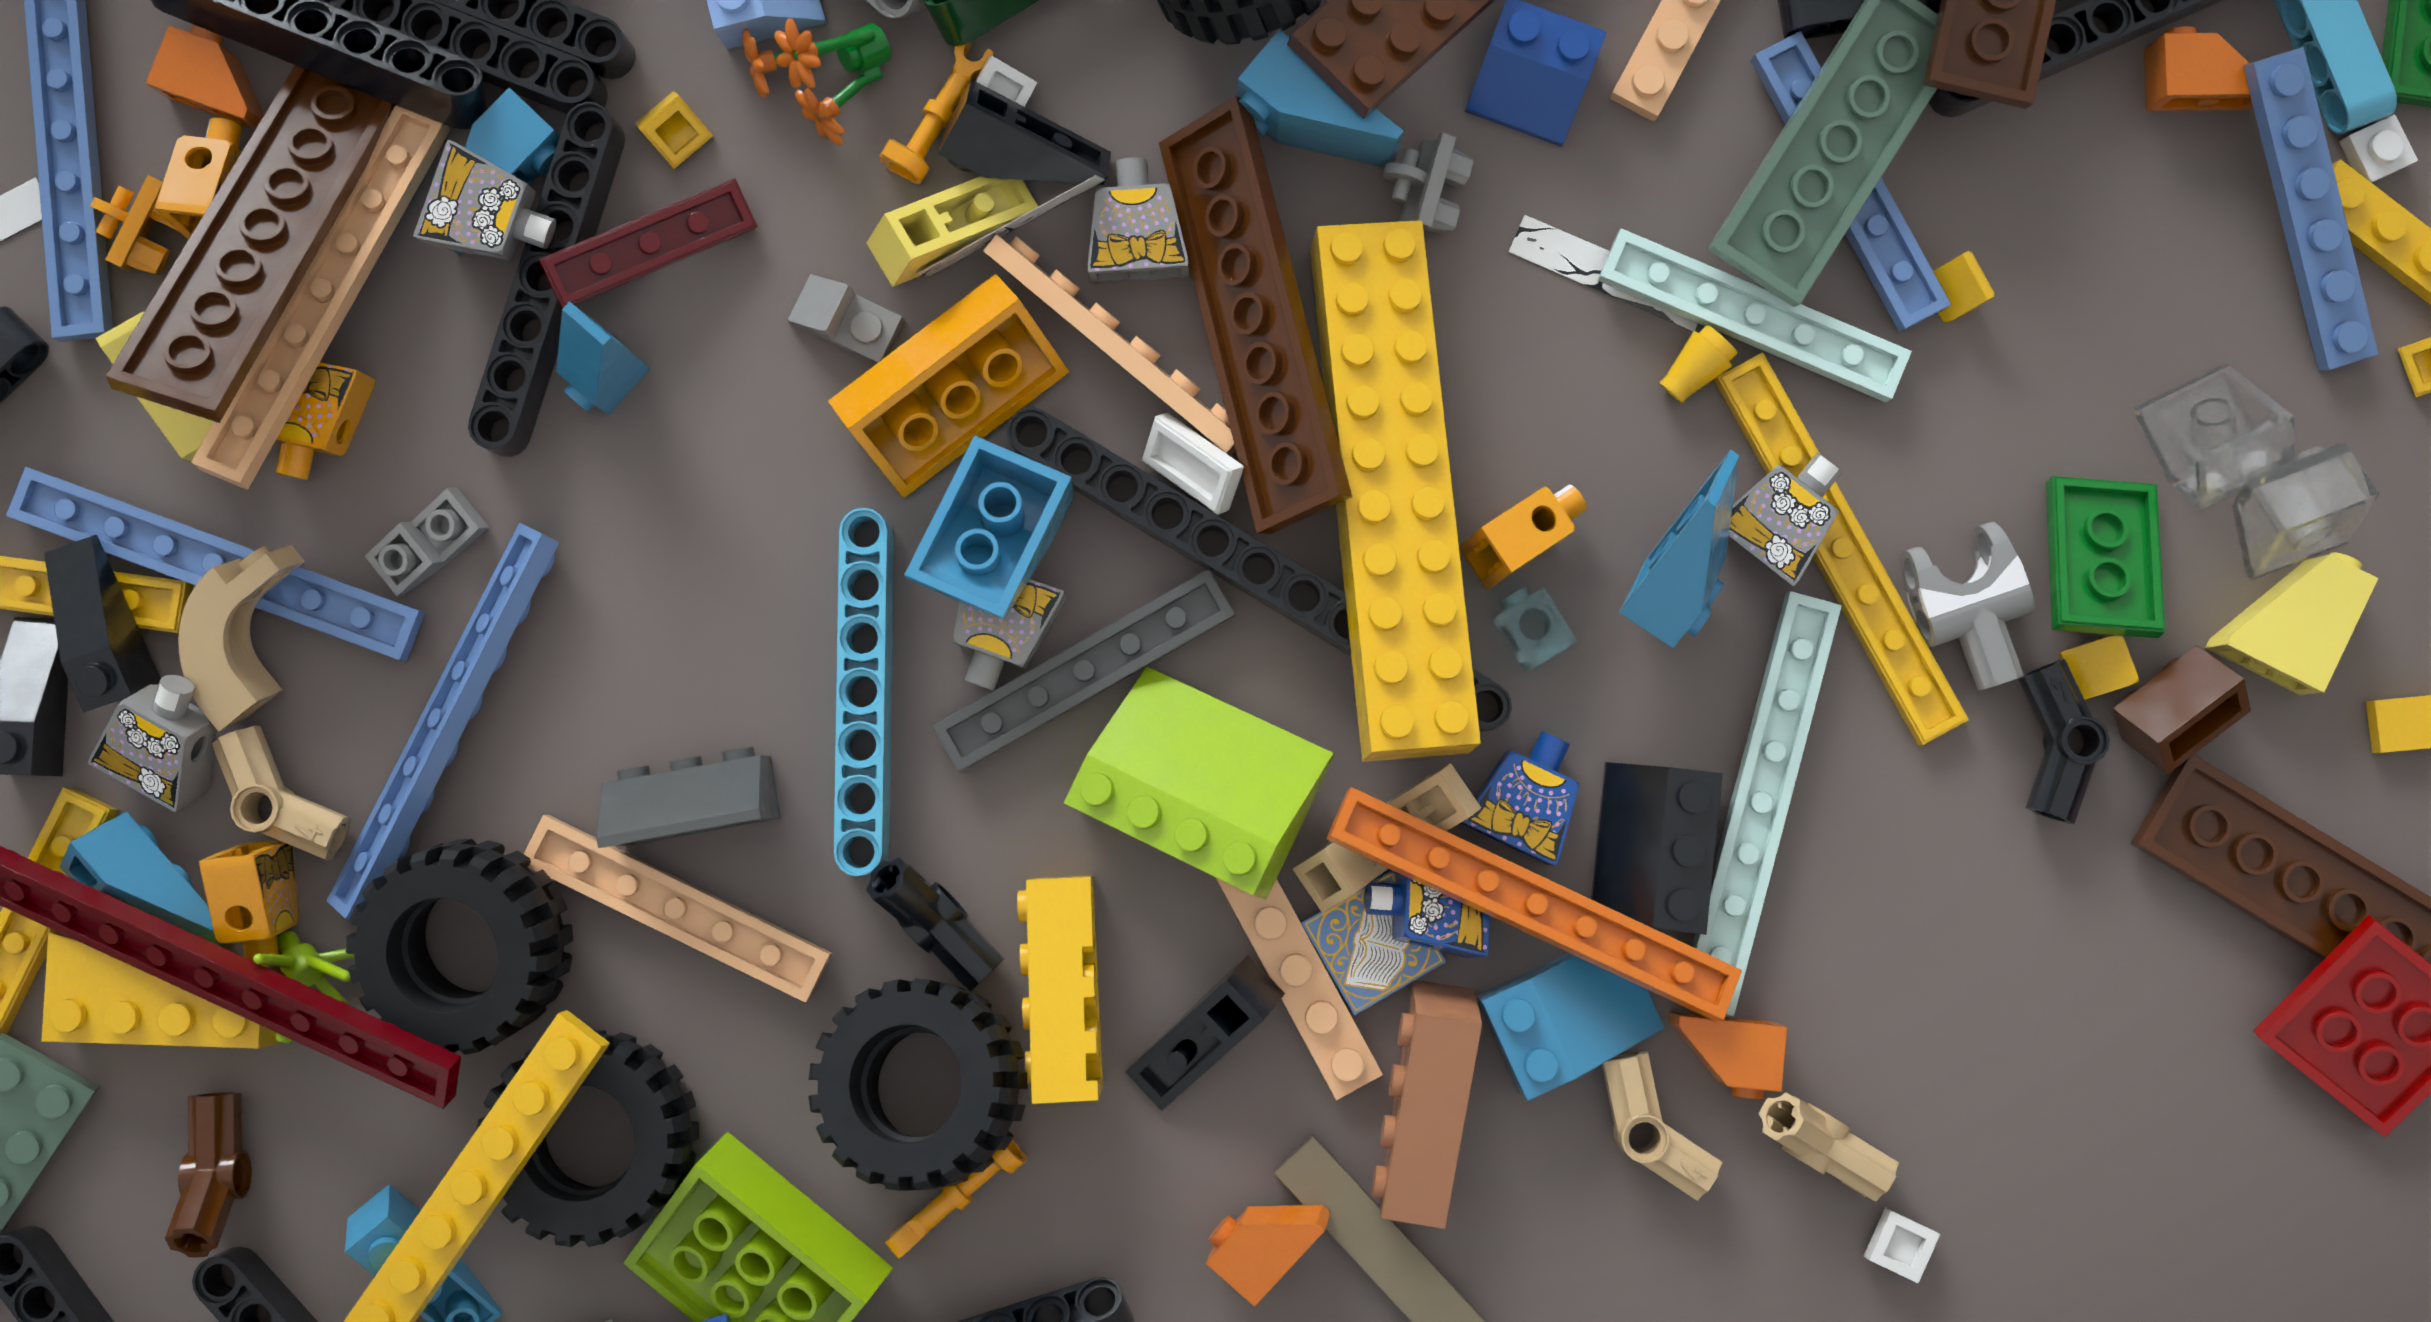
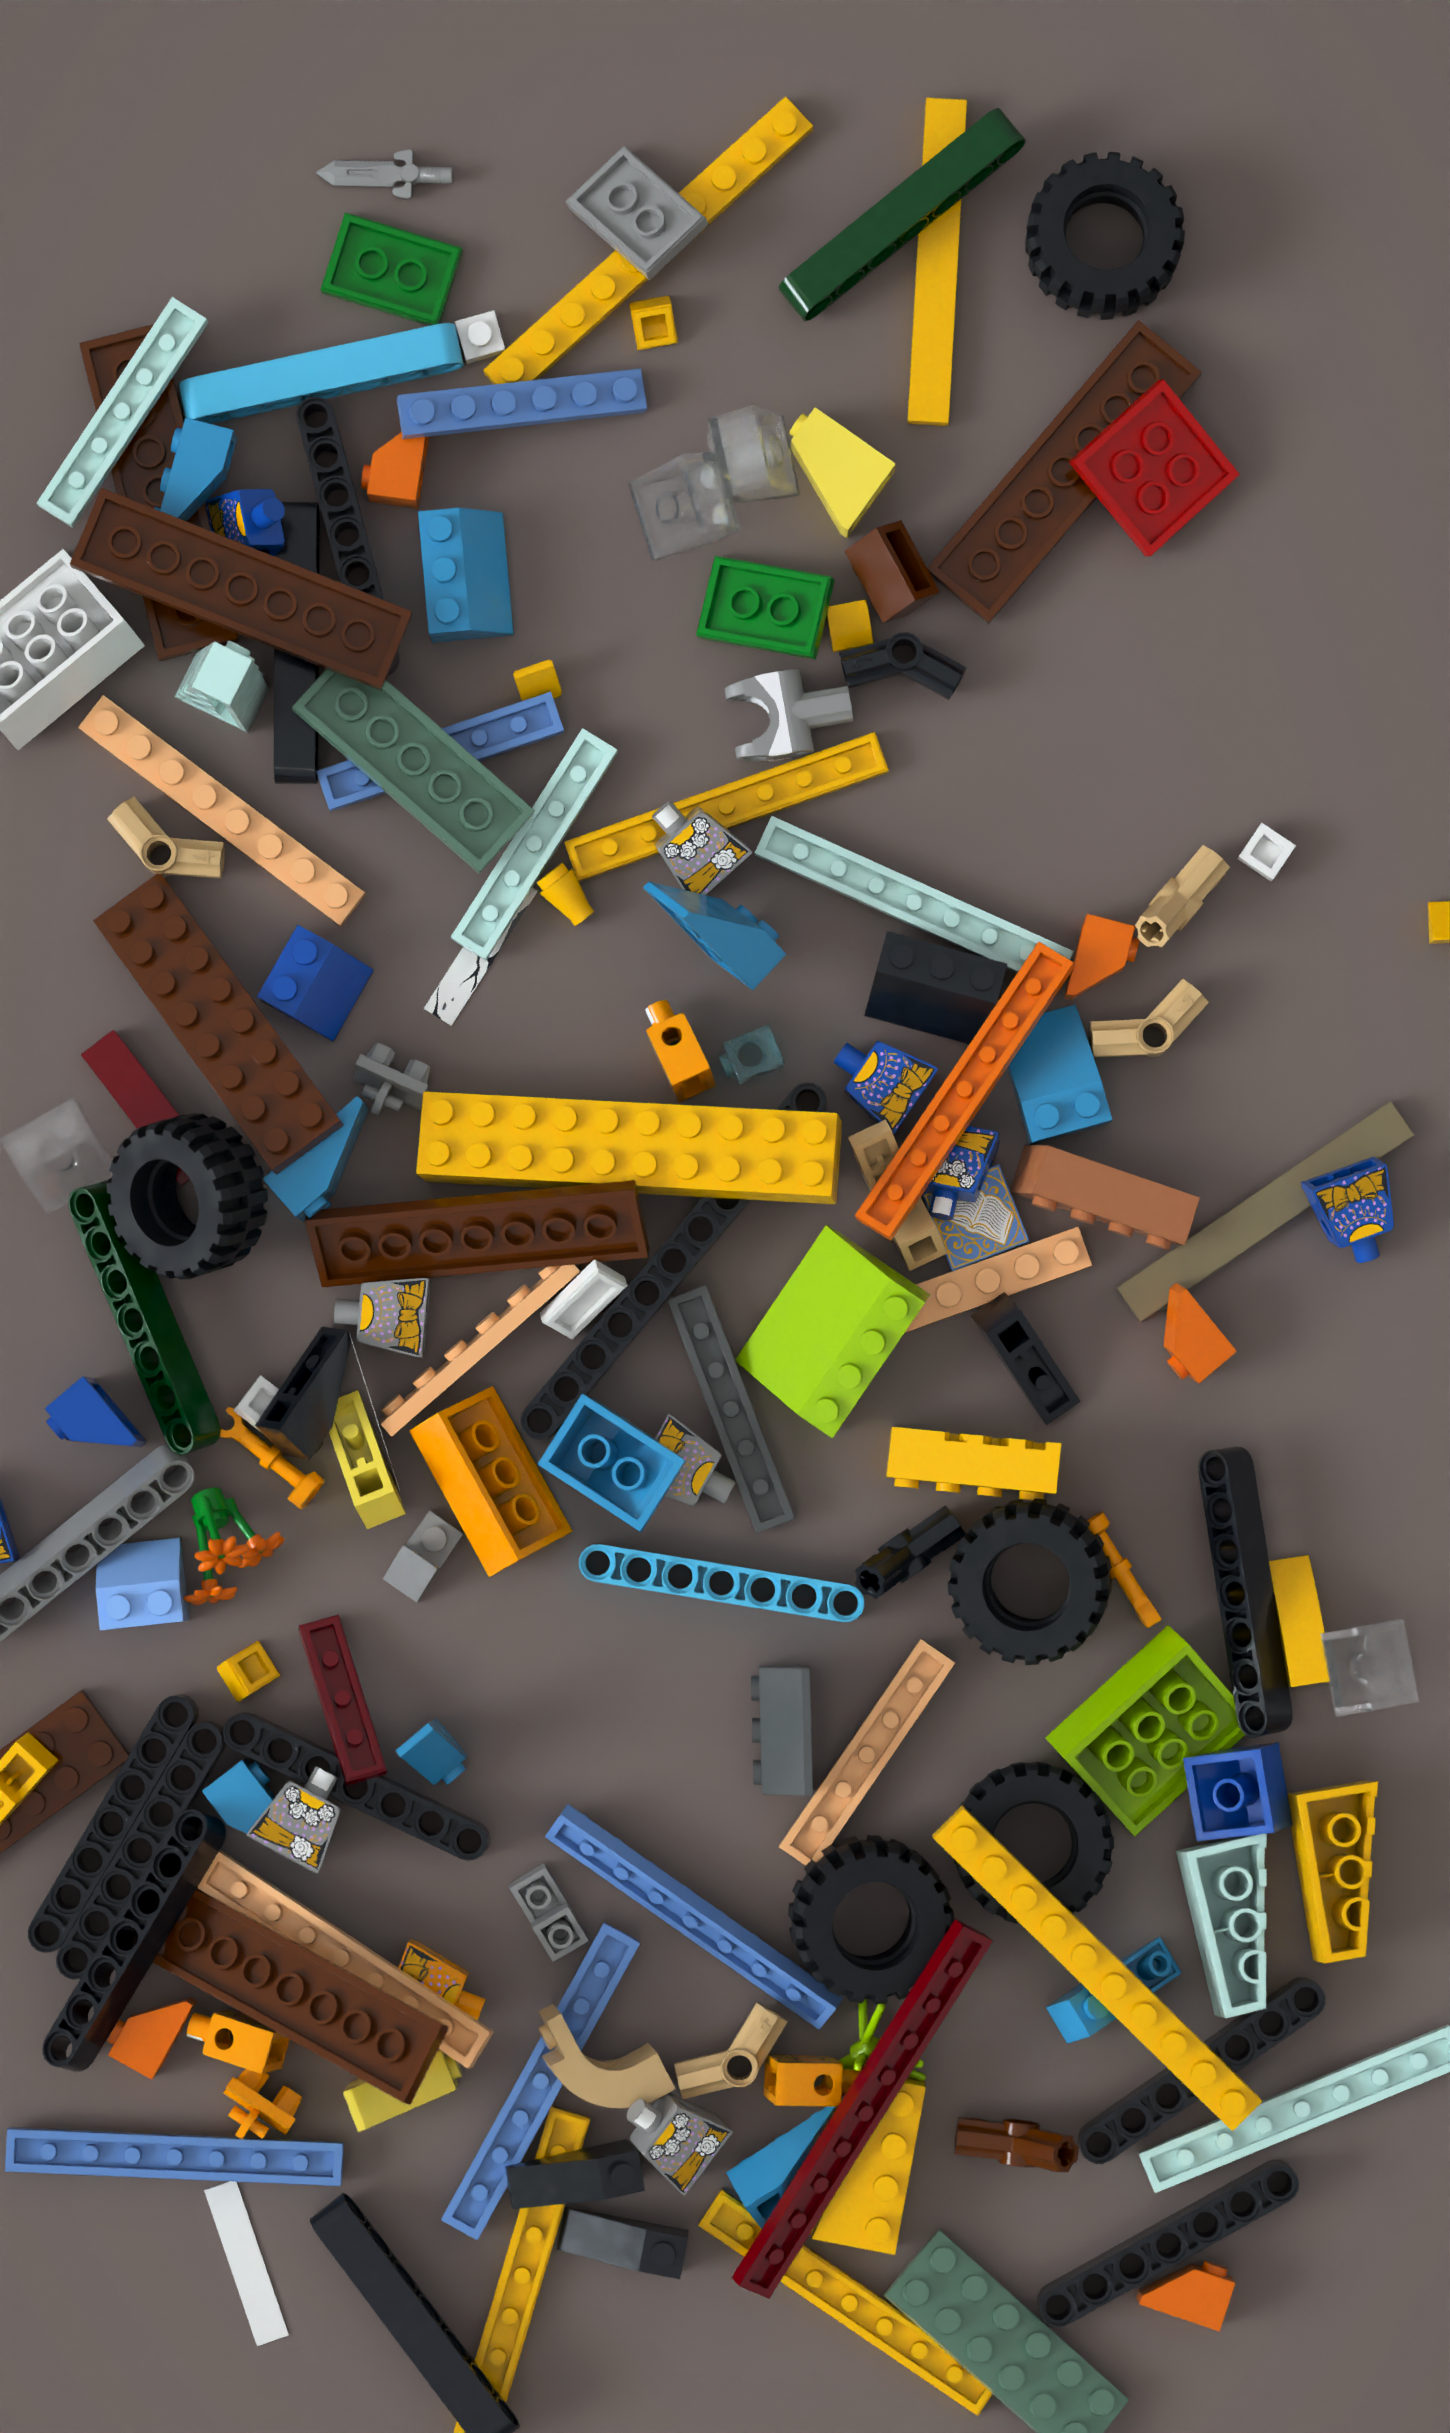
camera: 75 degrees left, 0 degrees up
(2079, 174) = (465, 574): none -> dark azure slope

